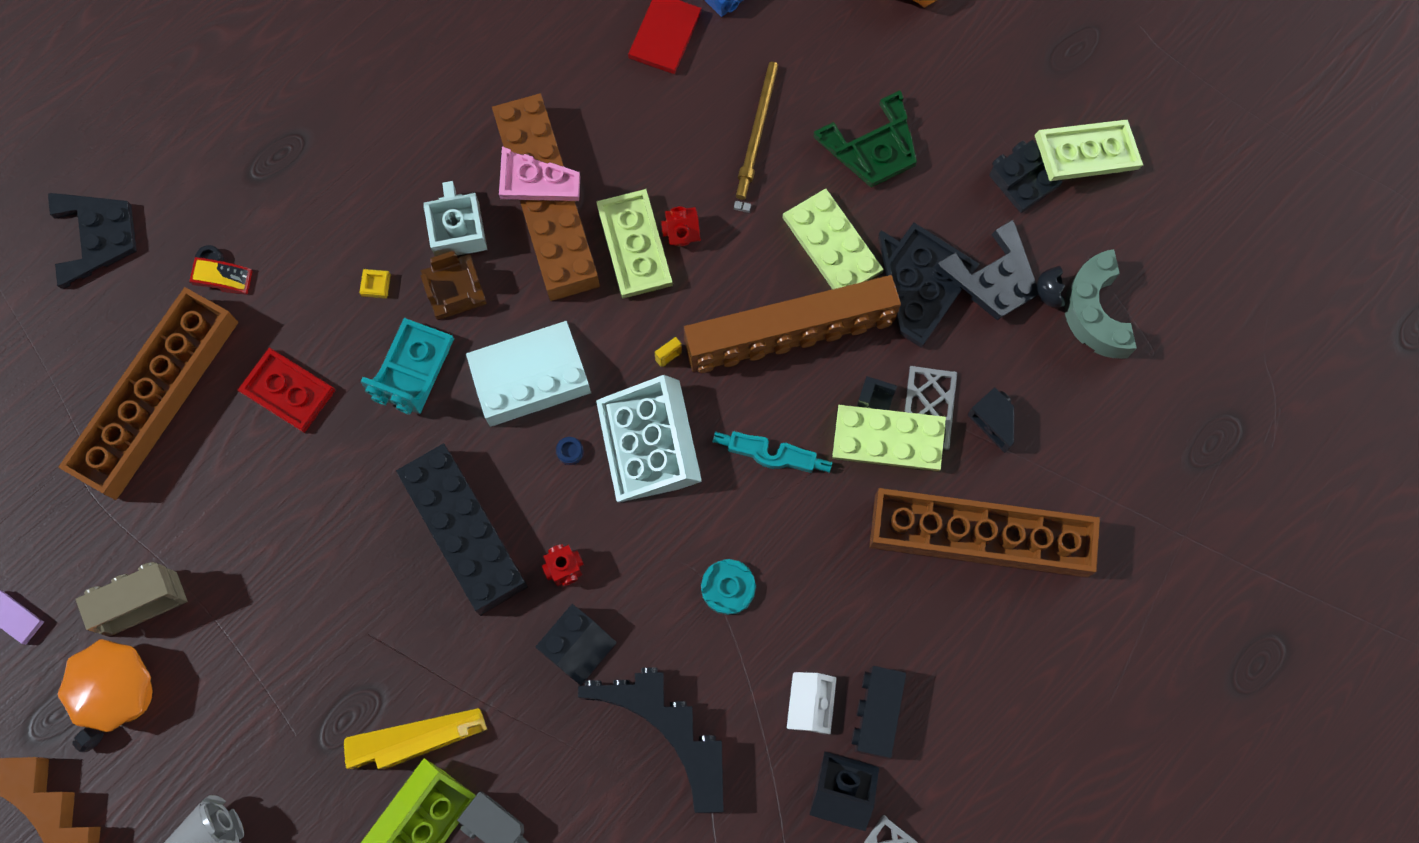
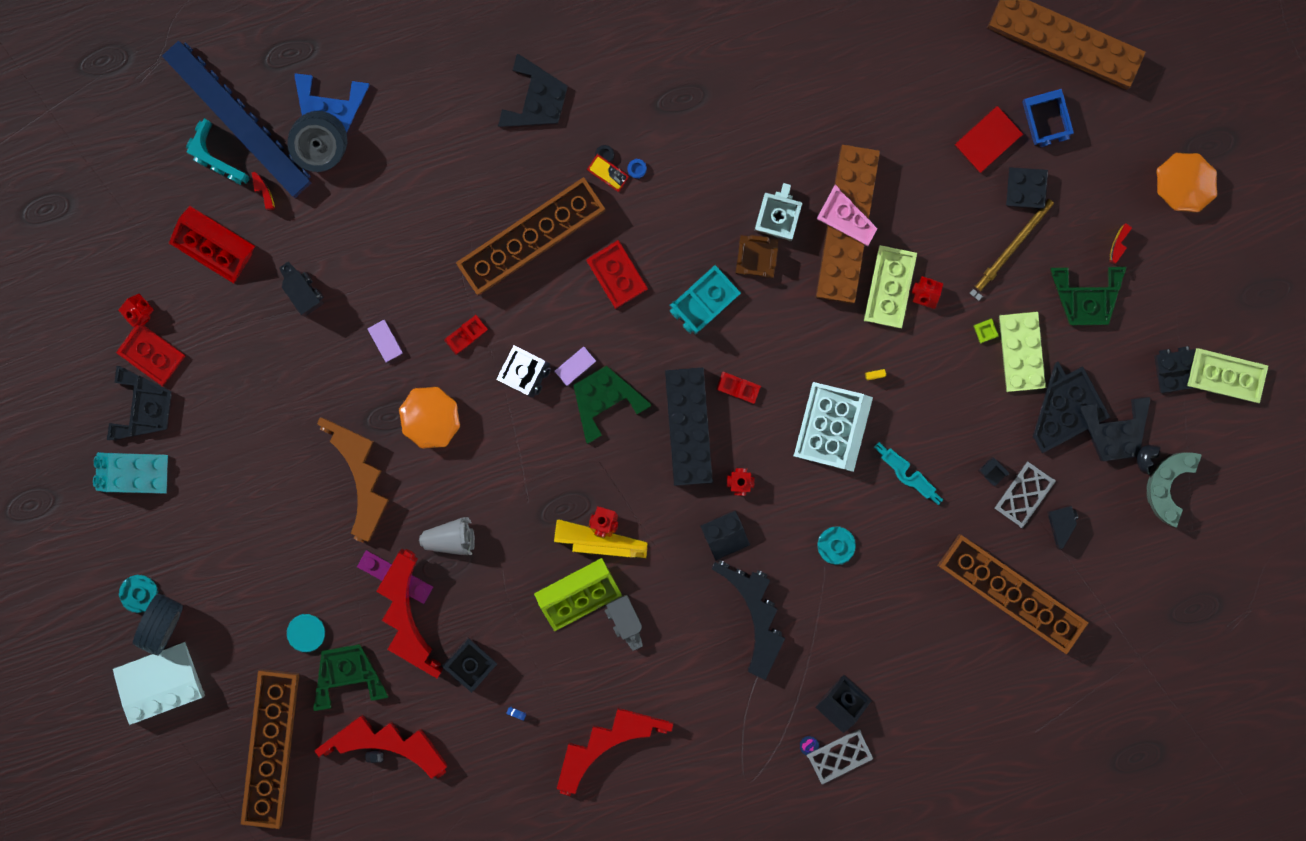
camera: 30 degrees right, 15 degrees up
(87, 739) = (404, 444): black tile -> none
(120, 555) = (466, 334): none -> red slope
(131, 599) = (466, 370): dark tan piece -> none
(214, 565) = (524, 372): none -> plate
(257, 256) = (637, 168): none -> blue tile
(281, 526) = (575, 366): none -> lavender tile
(328, 546) = (601, 392): none -> dark green wing
(375, 283) = (706, 228): yellow tile -> none
(405, 708) = (603, 522): none -> red brick
(505, 452) = (738, 387): none -> red slope
(527, 373) = (778, 341): light aqua slope -> none
(569, 450) = (779, 407): dark blue tile -> none
(738, 61) = (1027, 188): none -> black plate
(776, 240) = (986, 331): none -> lime tile
(791, 324) = (965, 398): dark orange brick -> none
(811, 702) = (851, 642): white panel -> none
(878, 72) = (1118, 248): none -> red slope
(879, 712) = (888, 668): black brick -> none
(889, 438) = (987, 502): yellowish green plate -> none

